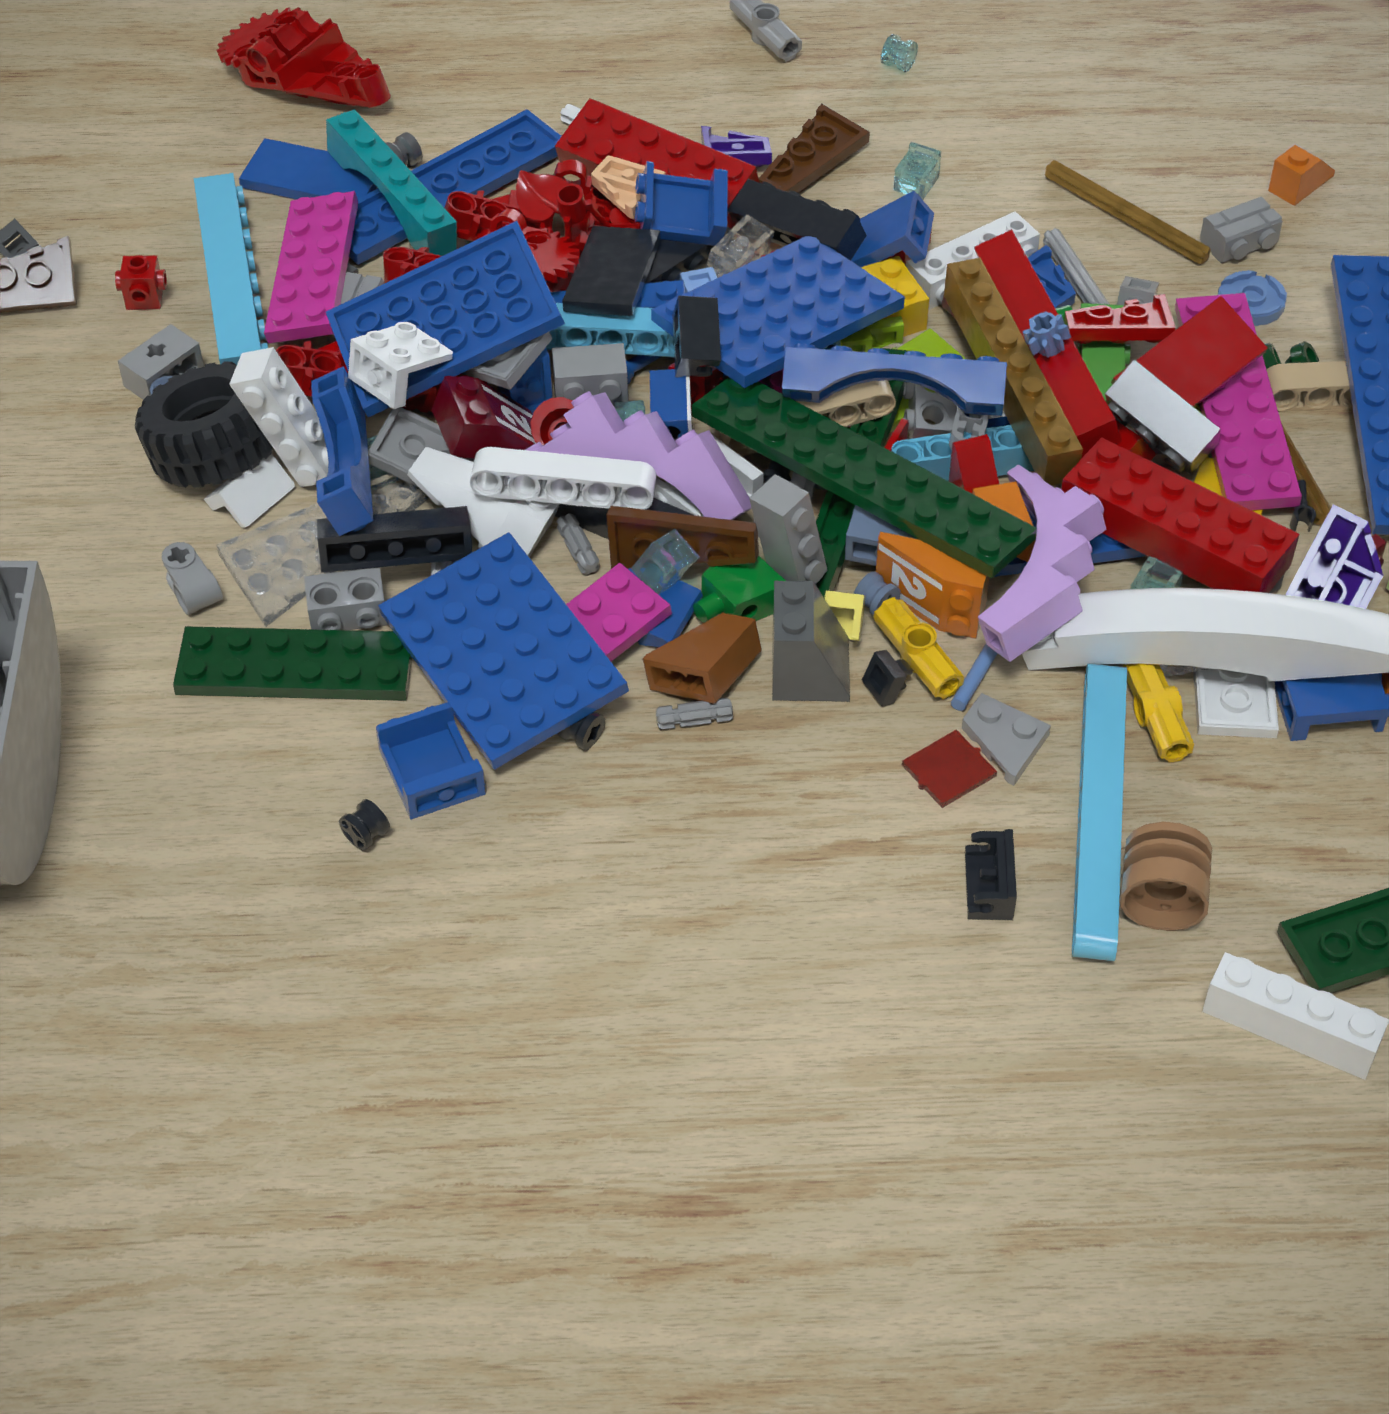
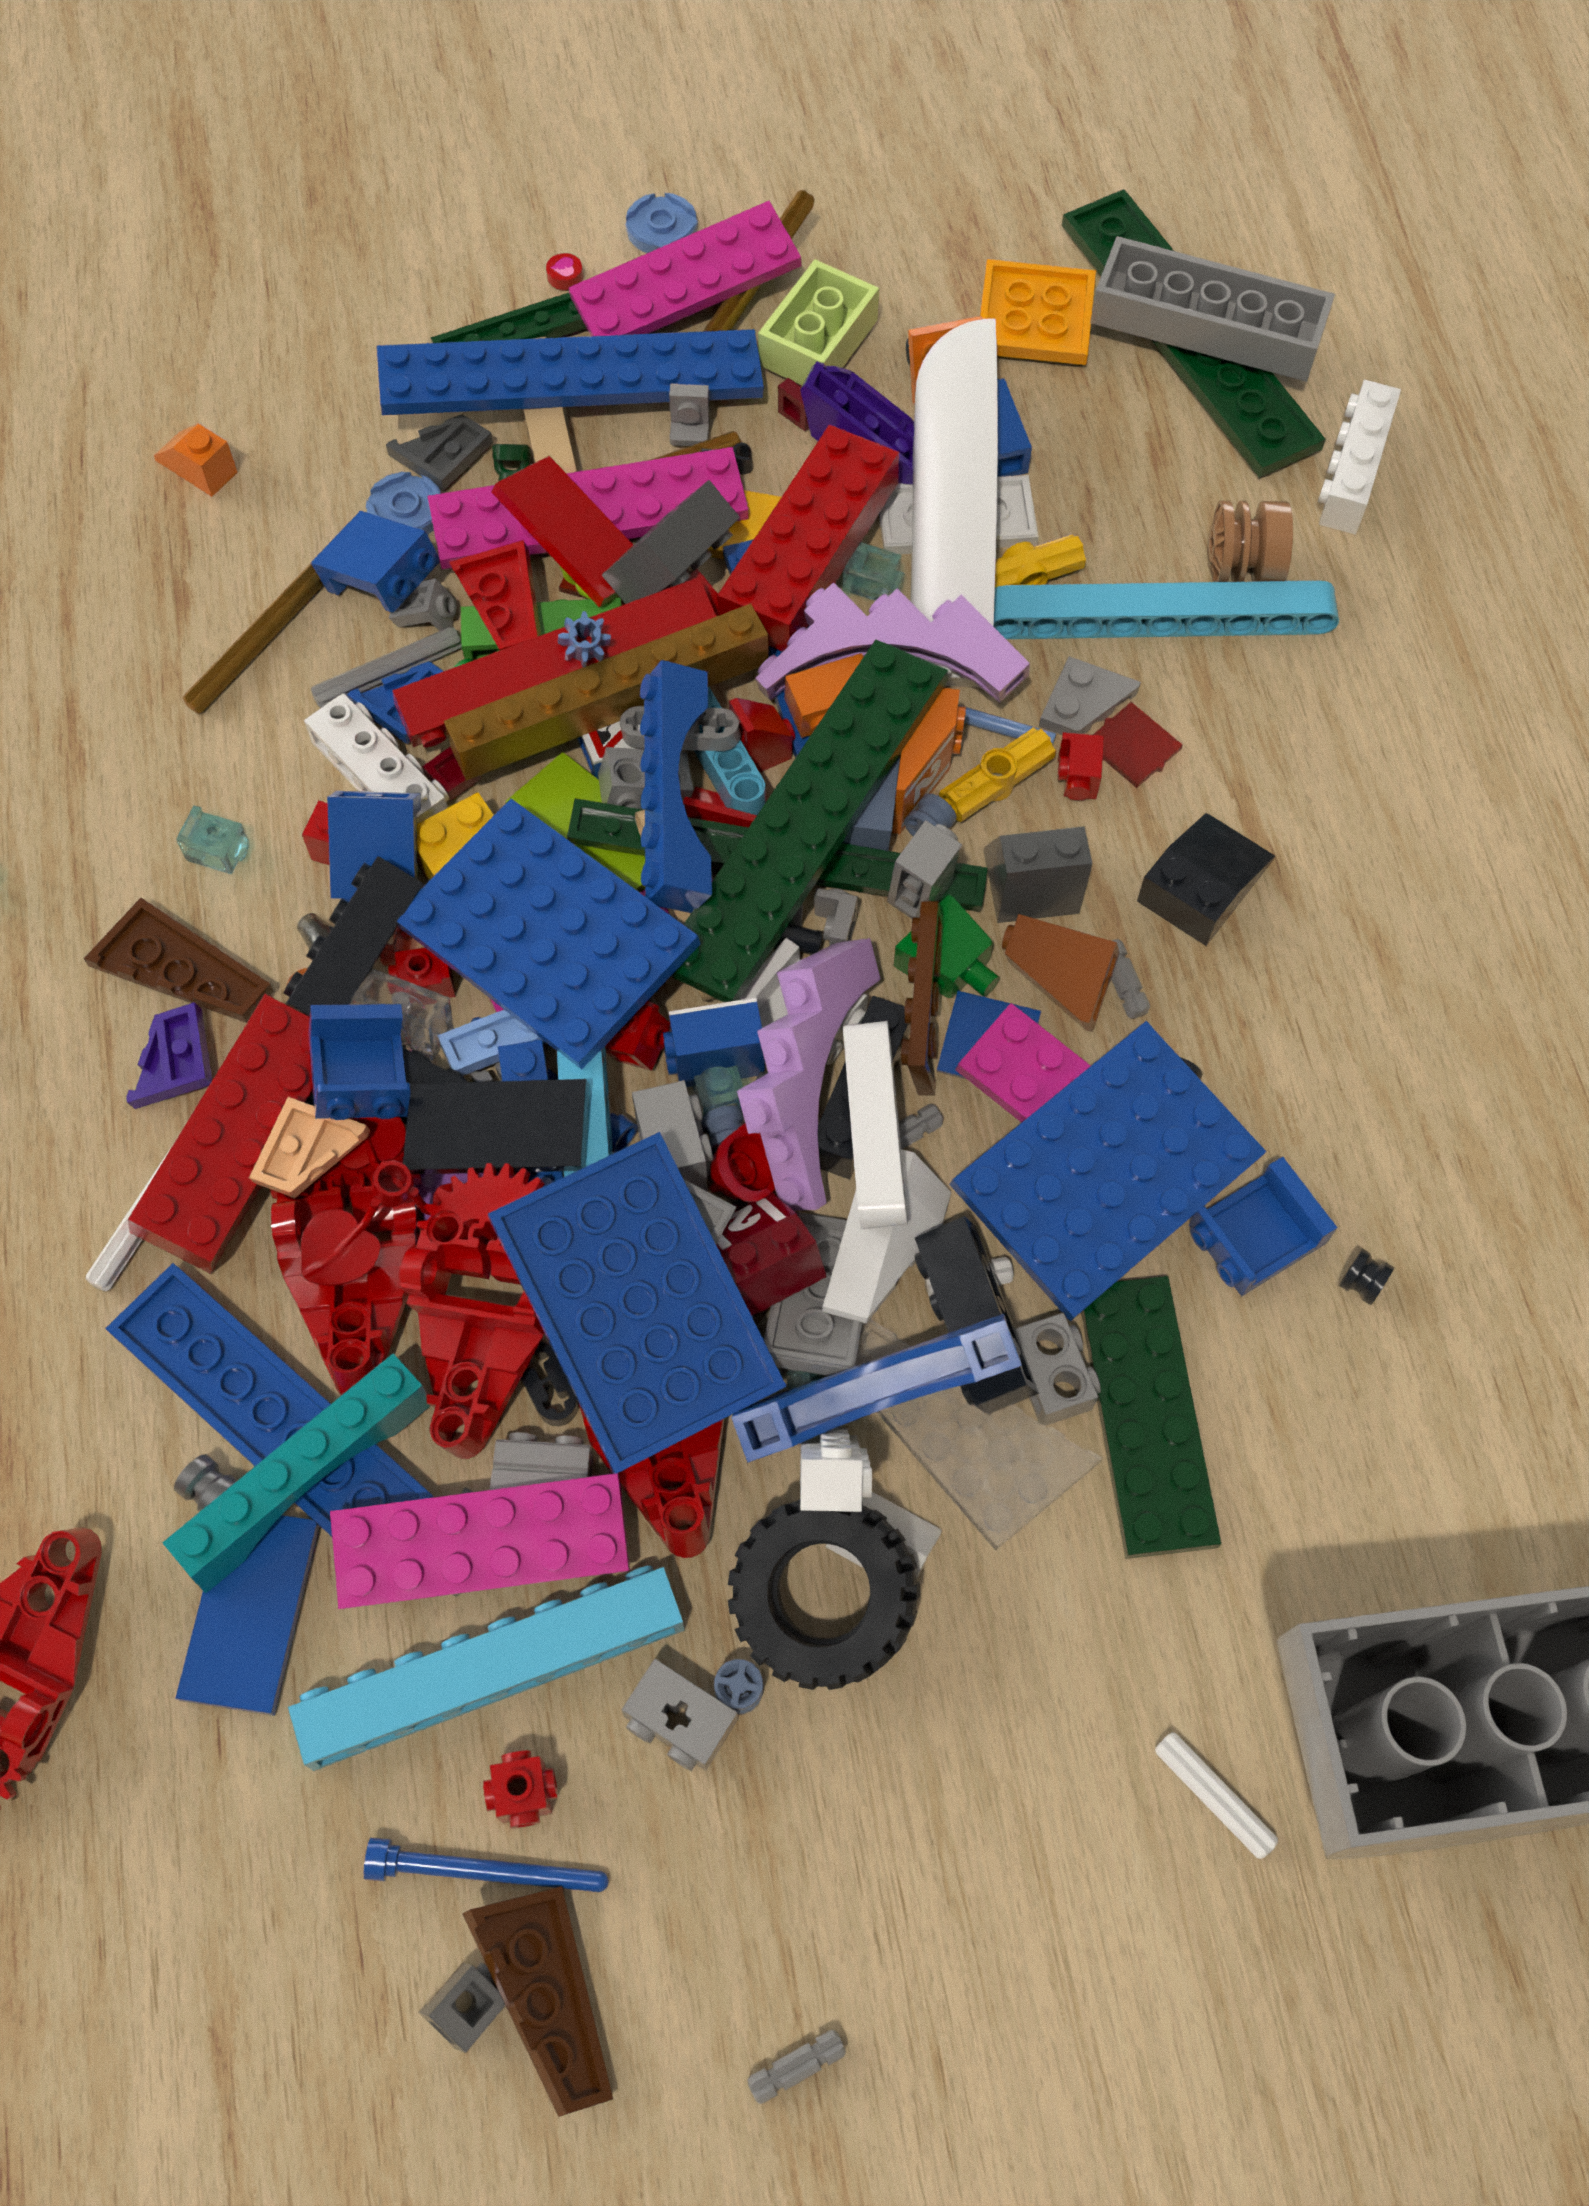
camera: 100 degrees left, 15 degrees up
(125, 223) = (386, 1860): none -> blue piece
(189, 578) = (1061, 1562): light grey piece -> none
(386, 356) = (730, 1337): white bracket -> none
(665, 562) = (964, 1007): clear light blue brick -> none
(696, 336) = (643, 993): black hinge -> none
(789, 786) = (1203, 877): none -> black slope
(848, 611) = (974, 831): light yellow panel -> none
(886, 677) = (1044, 799): black tile -> none
(919, 711) = (1080, 765): none -> red brick
(991, 876) = (1267, 692): black hinge -> none
(1173, 258) = (377, 558): none -> blue panel
(1241, 230) = (301, 509): light grey brick -> none
(1309, 319) = (443, 450): none -> dark grey wing
(1346, 482) = (689, 414): none -> light grey bracket

